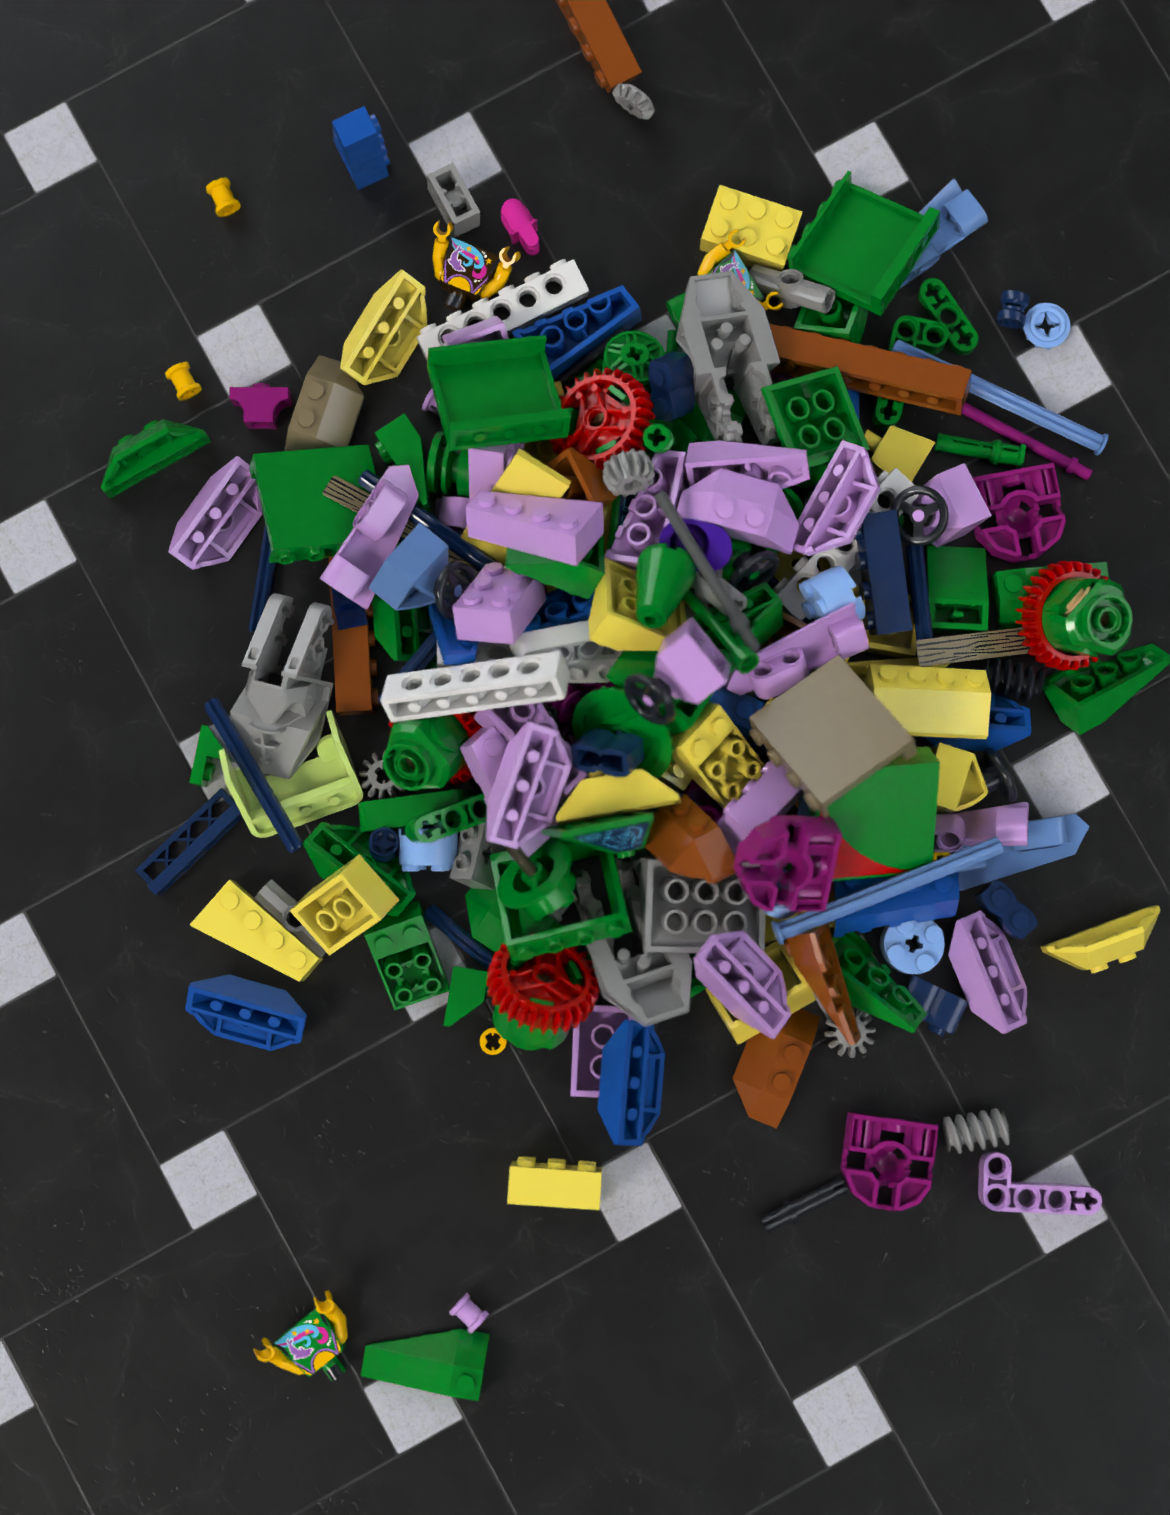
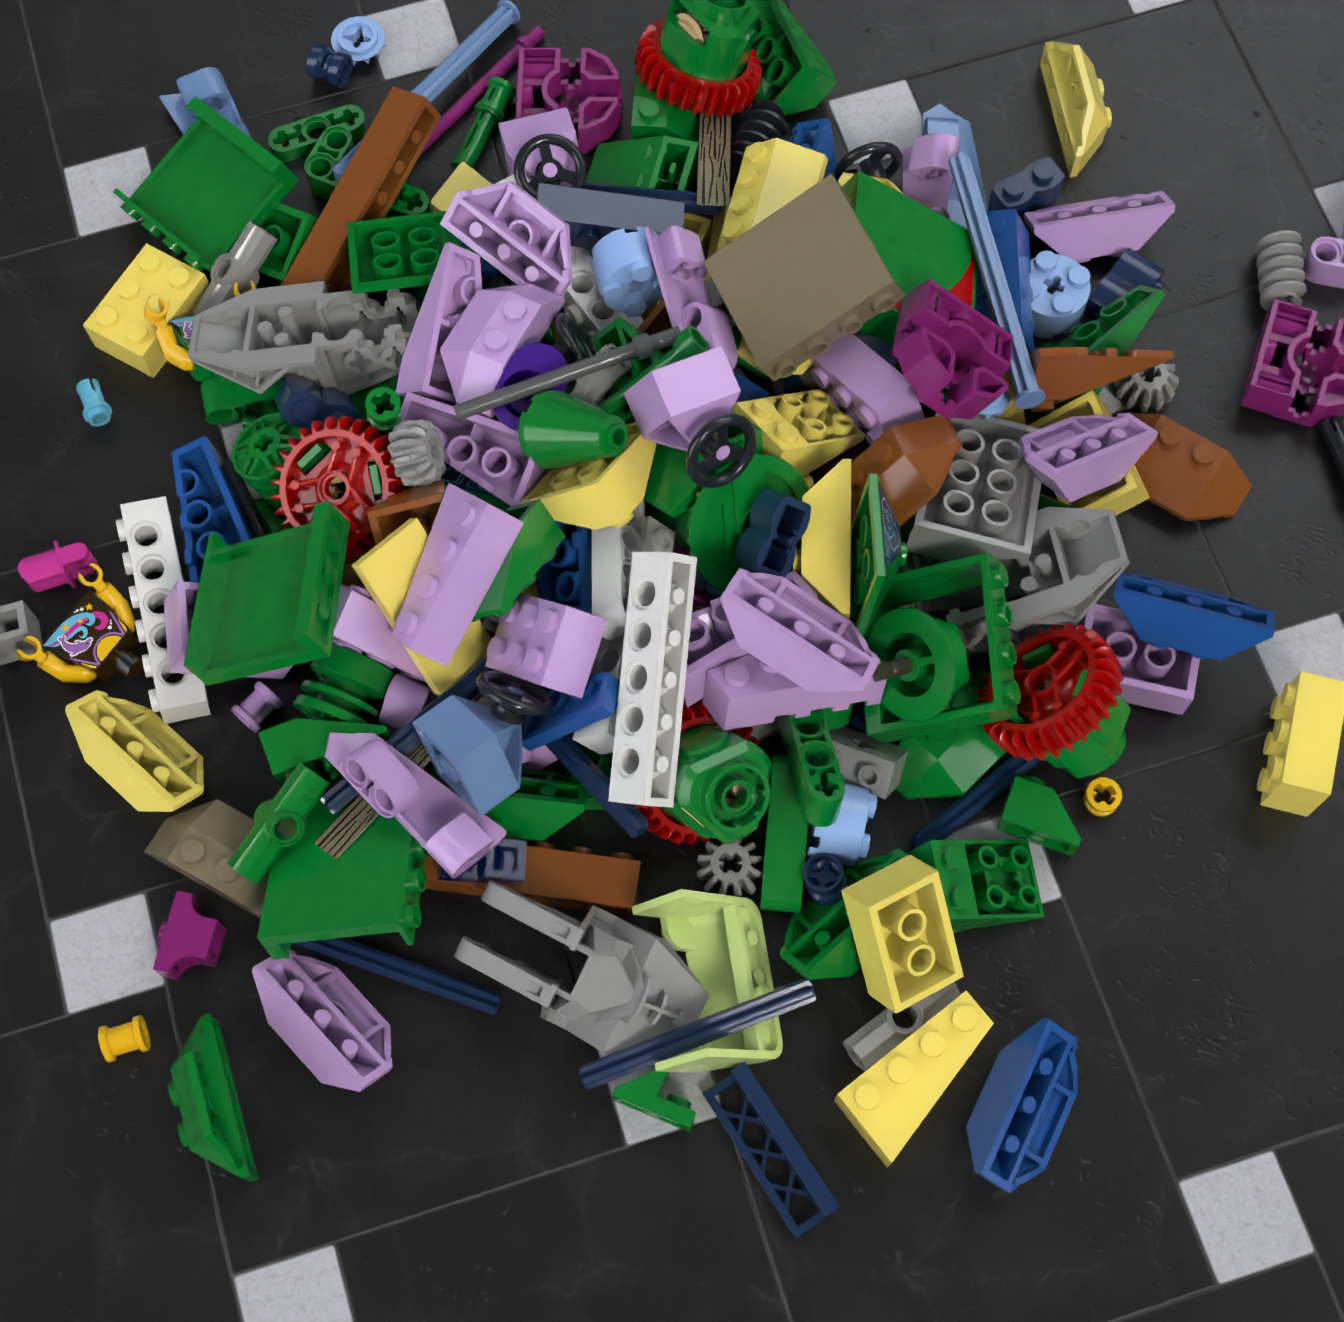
camera: 80 degrees left, 15 degrees down
(340, 446) = (267, 841): none -> green piece
(658, 215) = (95, 410): none -> medium azure pin

